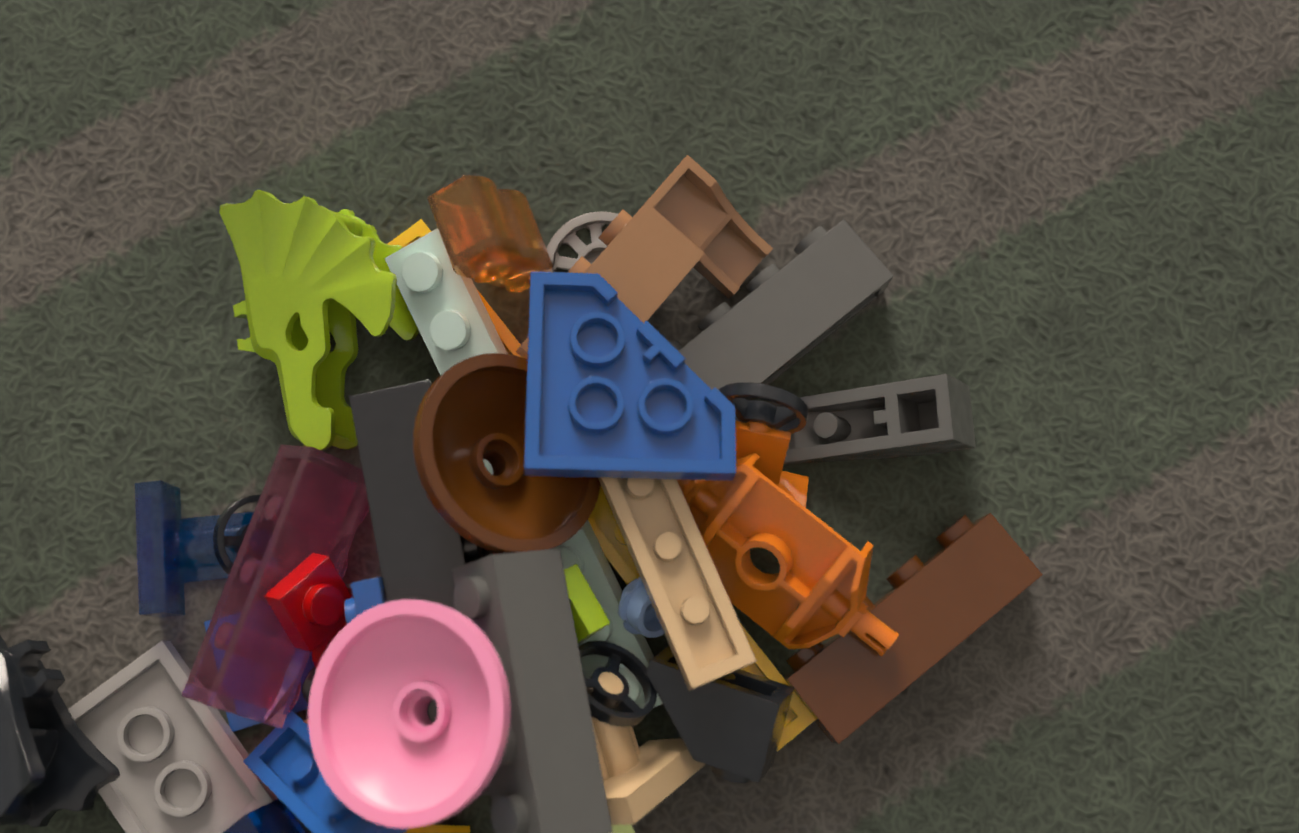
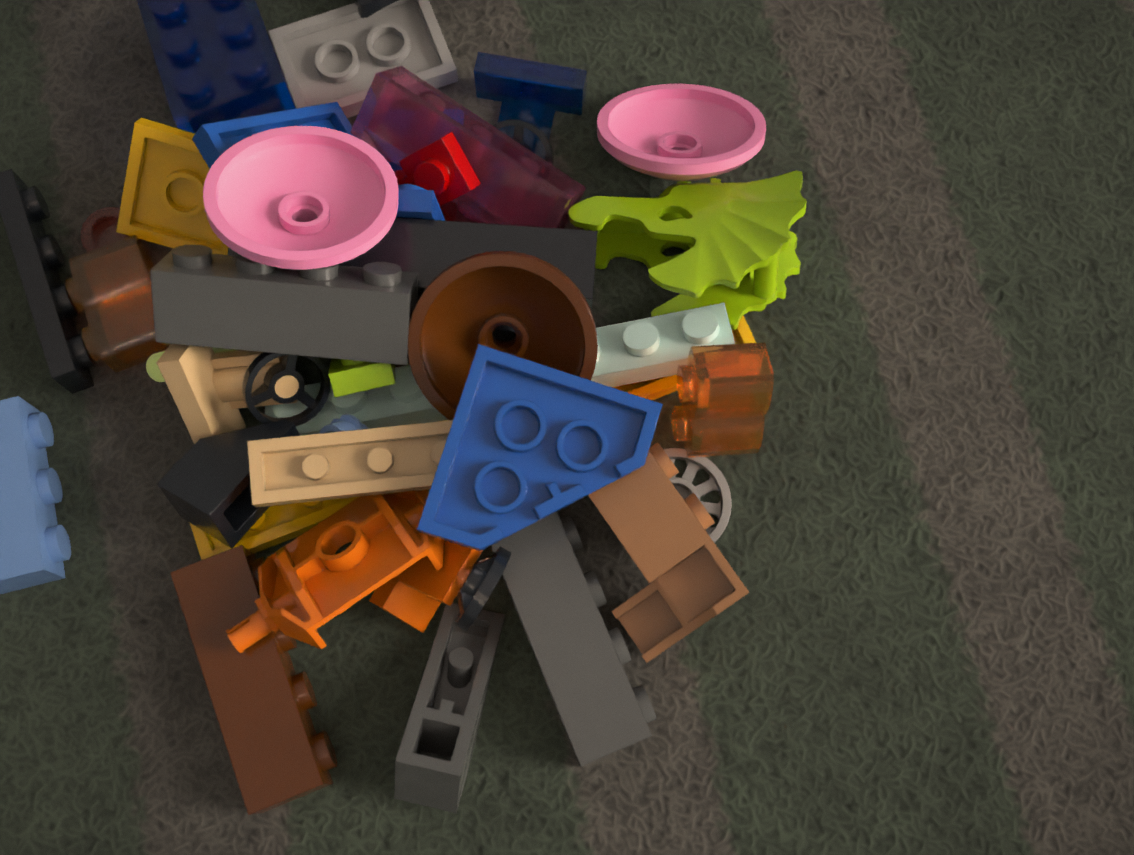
camera: 105 degrees right, 5 degrees down
(184, 360) = (681, 131): none -> bright pink dish

